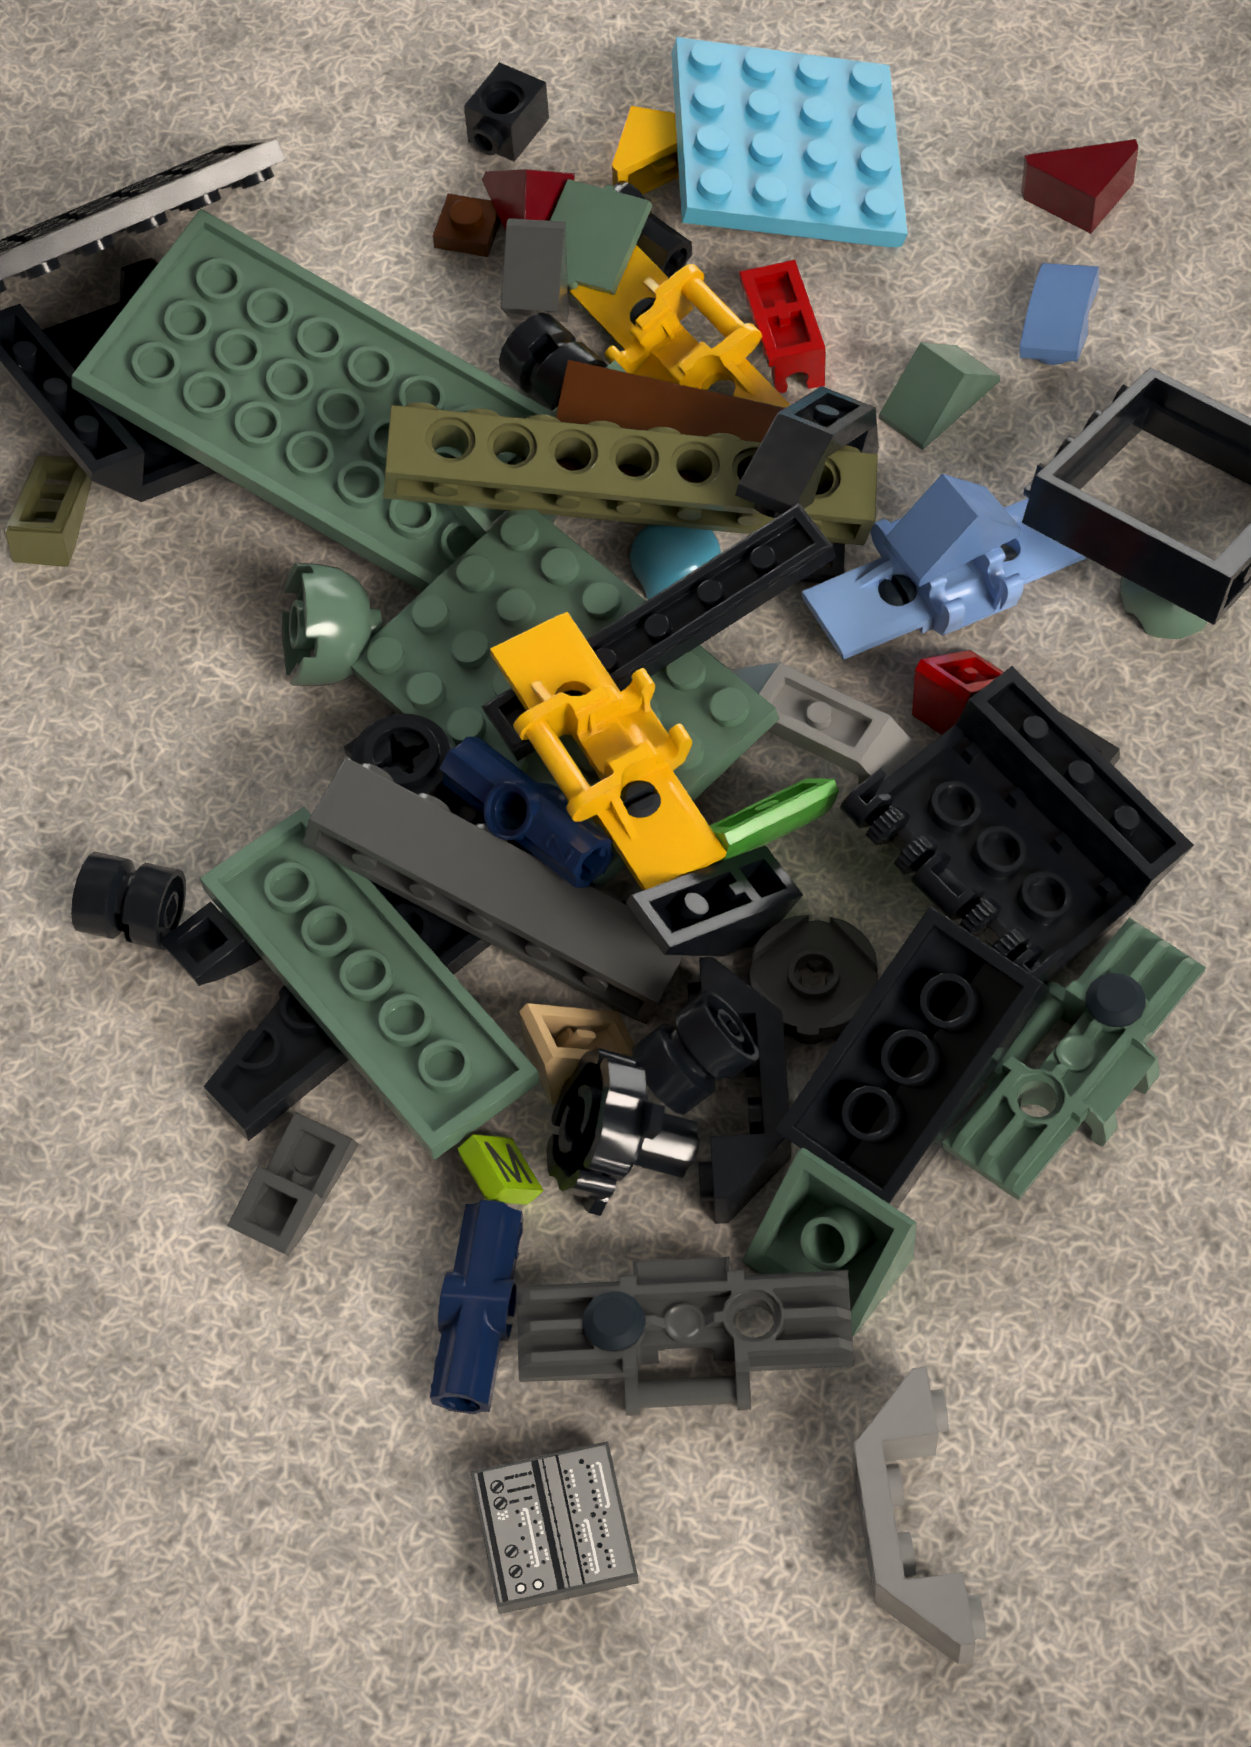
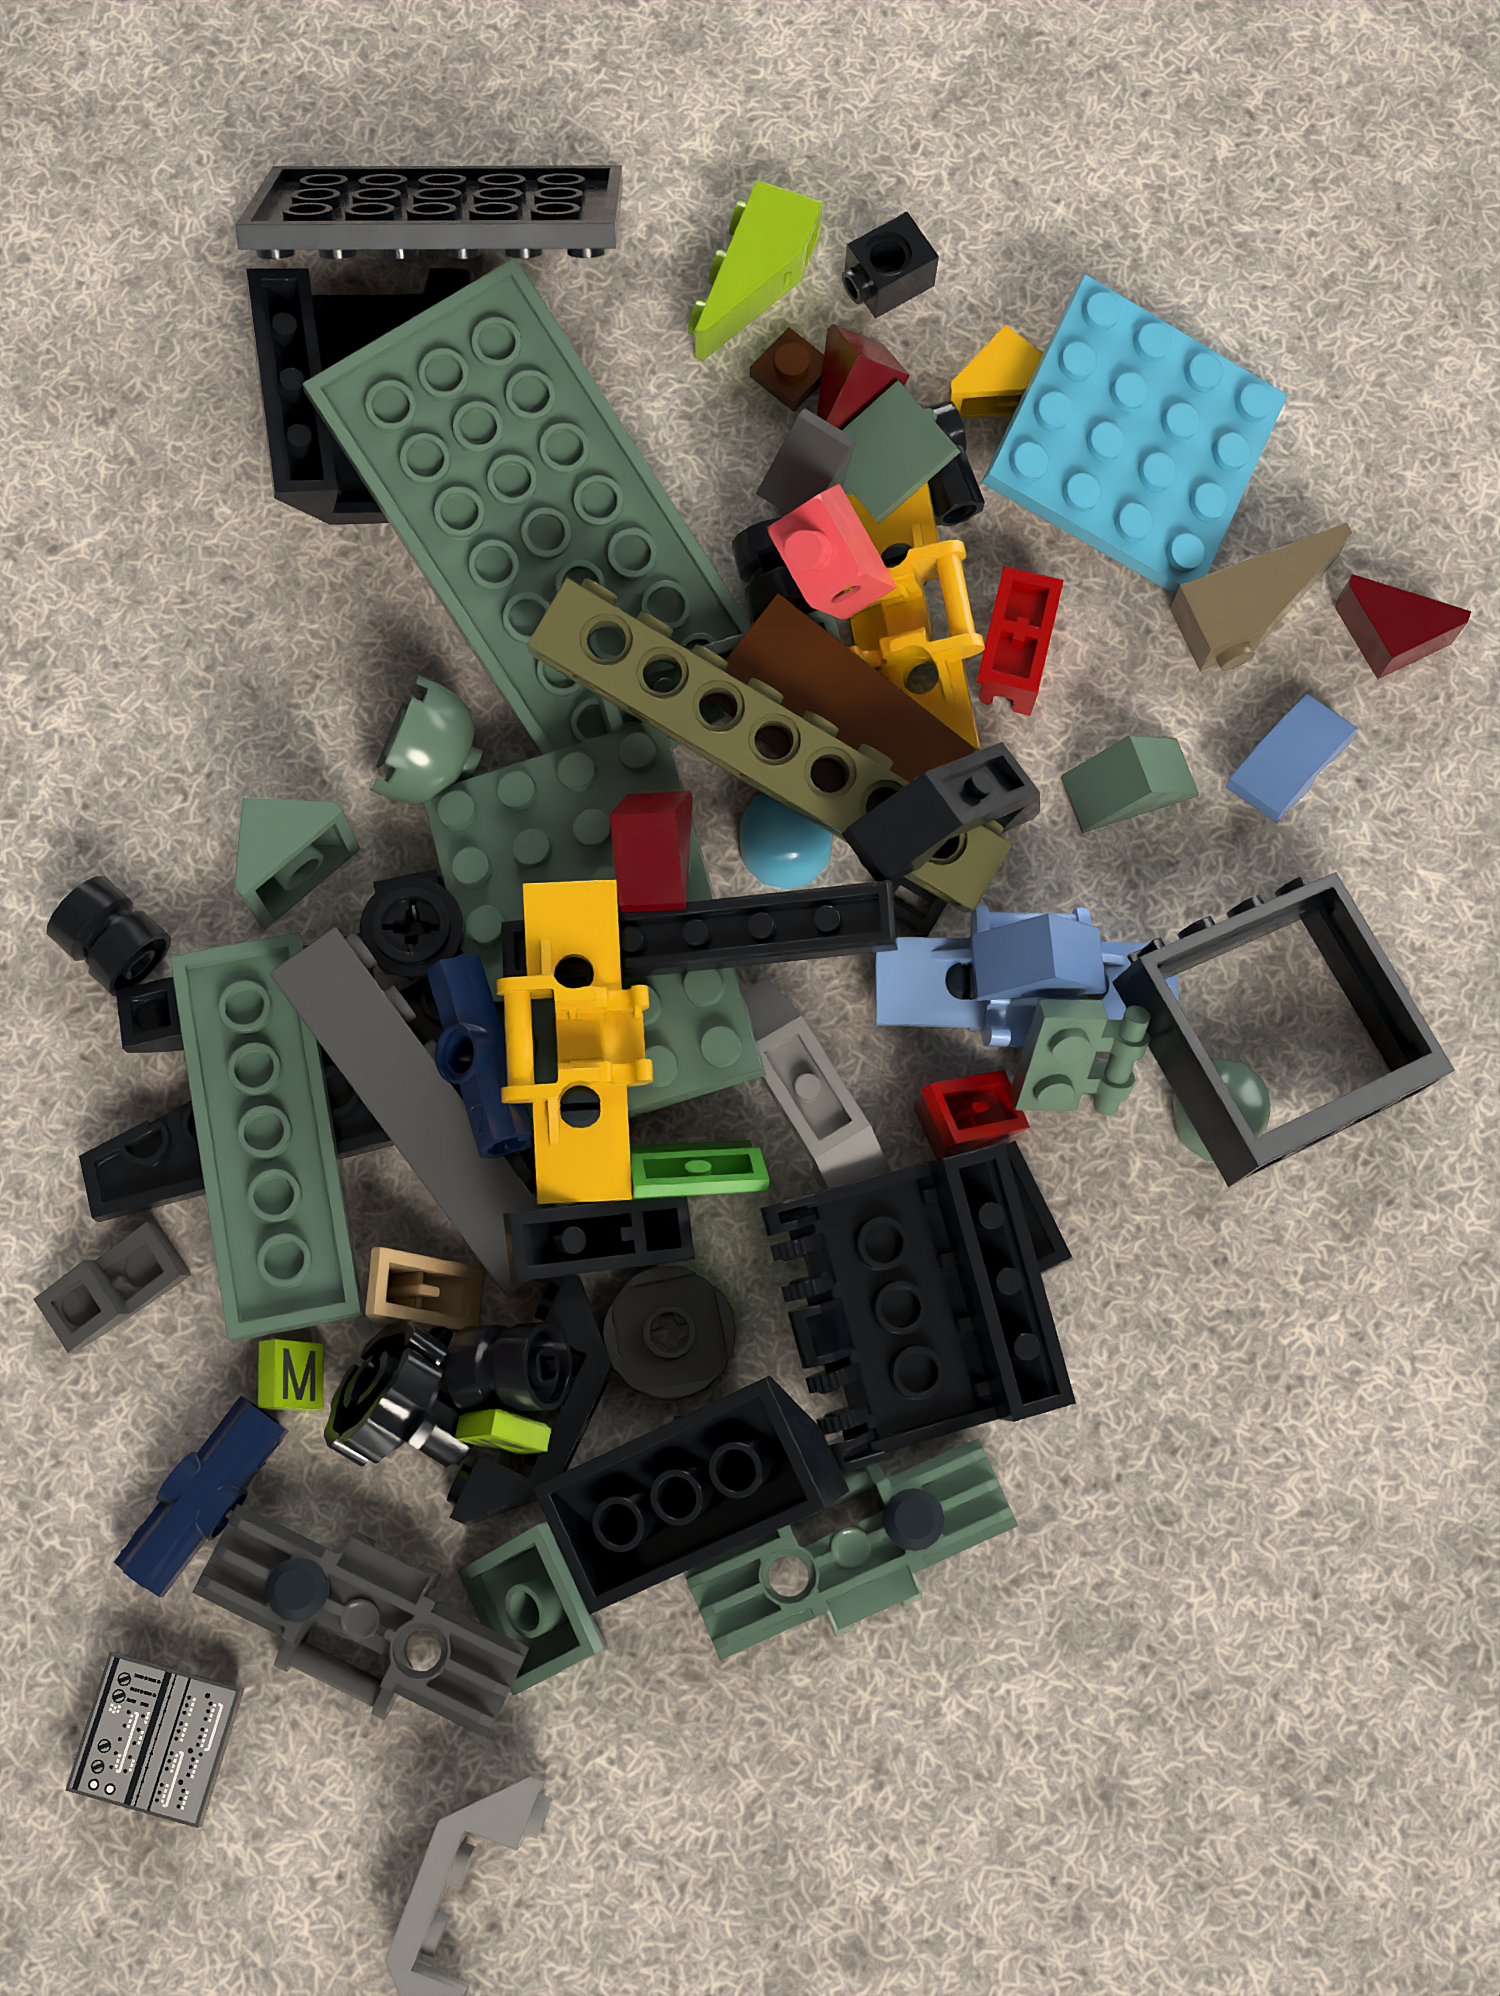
camera: 20 degrees right, 15 degrees up
(43, 540) = (229, 511): olive slope -> none
(258, 748) = (288, 852): none -> sand green slope
(398, 160) = (764, 261): none -> lime slope
(585, 583) = (652, 850): none -> dark red slope
(597, 311) = (829, 553): none -> coral torso
(720, 1106) = (503, 1432): none -> lime tile
(946, 225) = (1239, 606): none -> dark tan slope
(1013, 597) = (1061, 1054): none -> sand green plate

